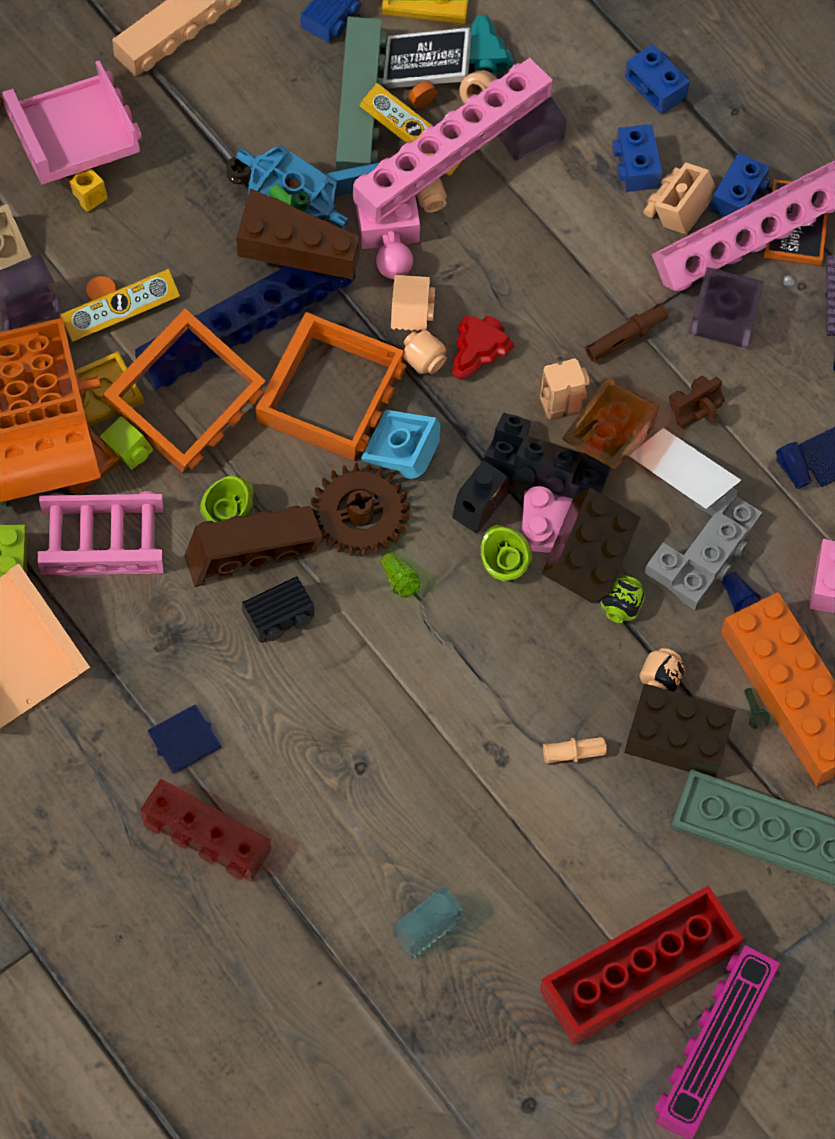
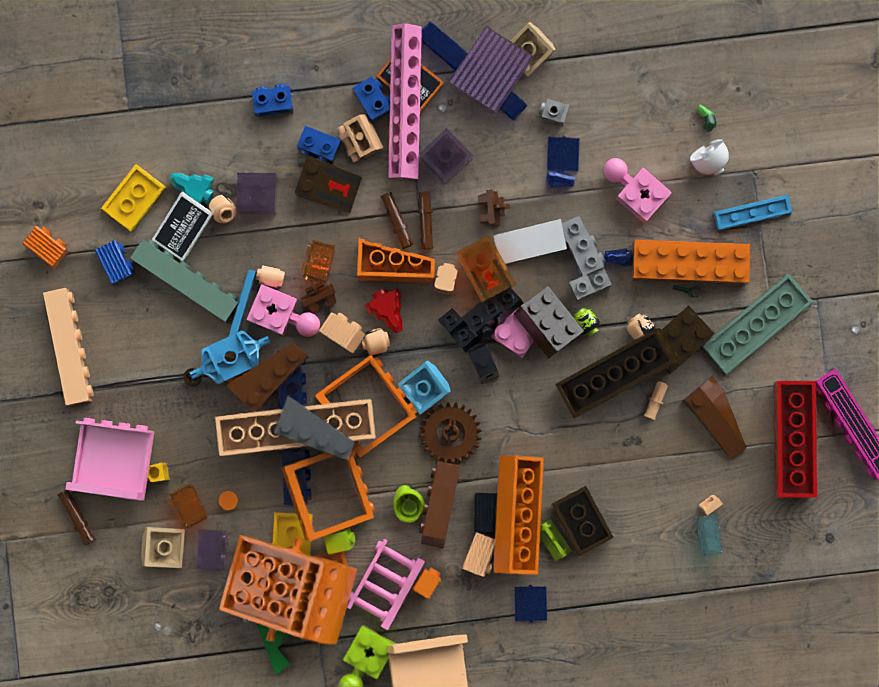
camera: 55 degrees left, 20 degrees up
(66, 245) = (188, 506): none -> clear orange brick
(119, 305) = (245, 495): tile -> none
(134, 578) = (427, 582): none -> orange brick
(205, 830) = (592, 622): clear red brick -> none
(214, 632) = (480, 555): none -> light nougat brick
(248, 302) = (255, 430): none -> light nougat brick
(254, 306) = (307, 428): none -> dark grey wing
(293, 718) = (554, 540): none -> lime hinge
(299, 644) = (518, 514): none -> orange brick
(300, 200) = (243, 367): arm -> none
(342, 735) = (582, 520): none -> dark brown brick
(380, 201) = (249, 181): bright pink brick -> none
(395, 116) = (227, 263): tile -> none
(401, 577) = (502, 434): clear neon green cone -> none
(422, 94) = (204, 243): orange tile -> none
(450, 264) = (311, 299): none -> reddish brown hips
(472, 900) = (710, 504): none -> light nougat tile
(486, 234) = (318, 261): none -> clear orange brick
(505, 553) = (527, 374): lime hair -> none
(536, 312) = (392, 264): none -> orange wedge
(579, 662) = (616, 372): none -> dark brown brick
(593, 193) = (328, 185): none -> dark brown slope
(595, 307) = (397, 221): none -> reddish brown pin
(610, 835) = (715, 414): none -> reddish brown wedge

